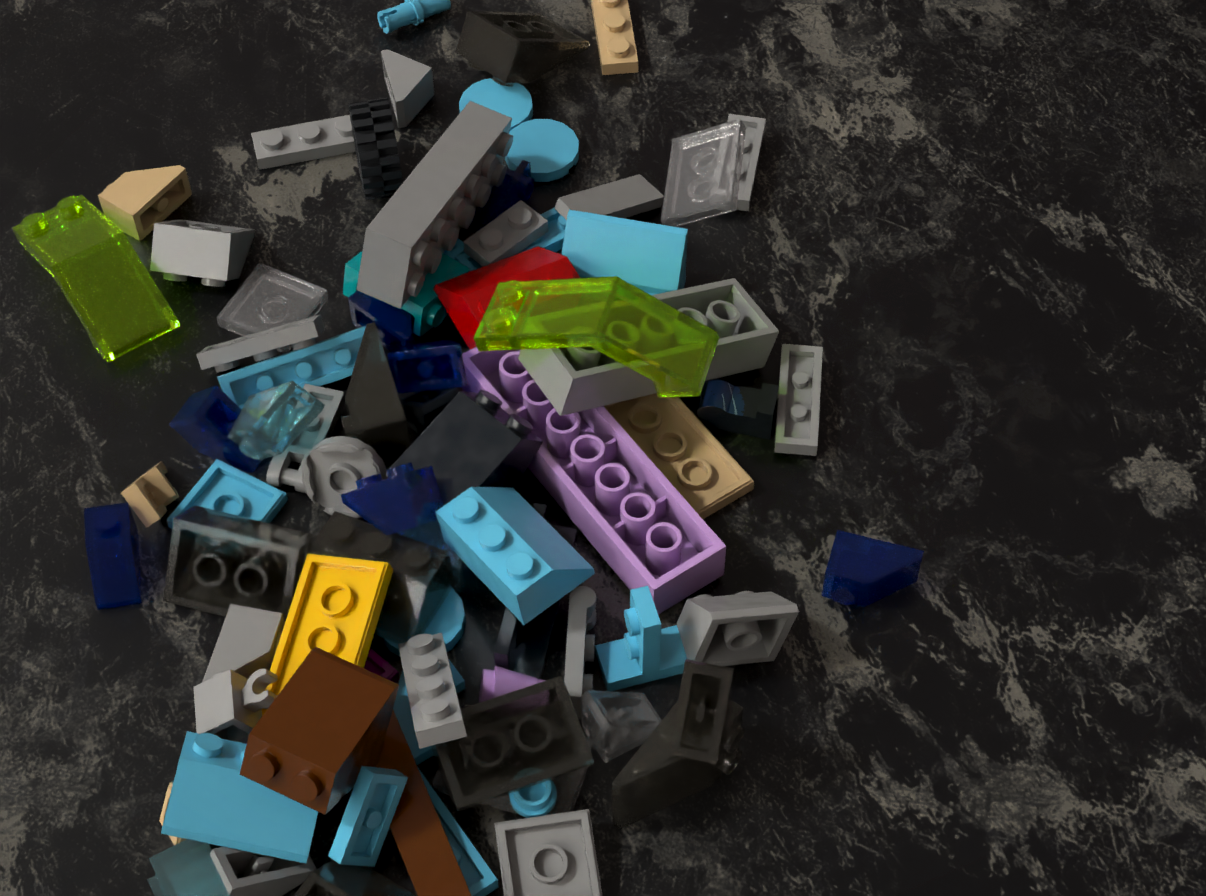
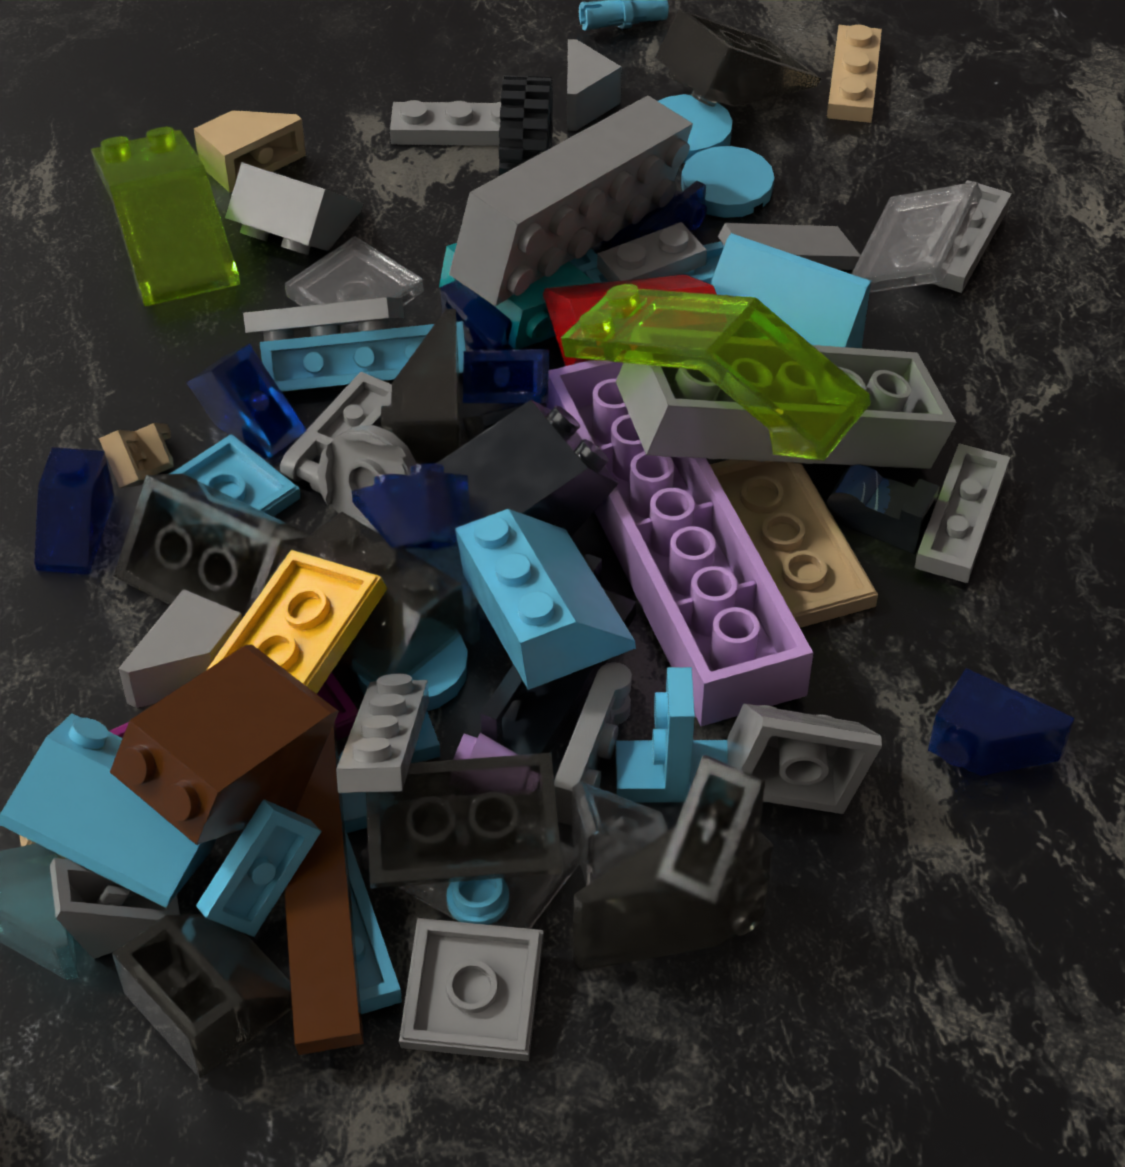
camera: 15 degrees right, 5 degrees down
(232, 703) = (134, 687): light grey brick -> none
(274, 420) = (306, 397): clear light blue slope -> none

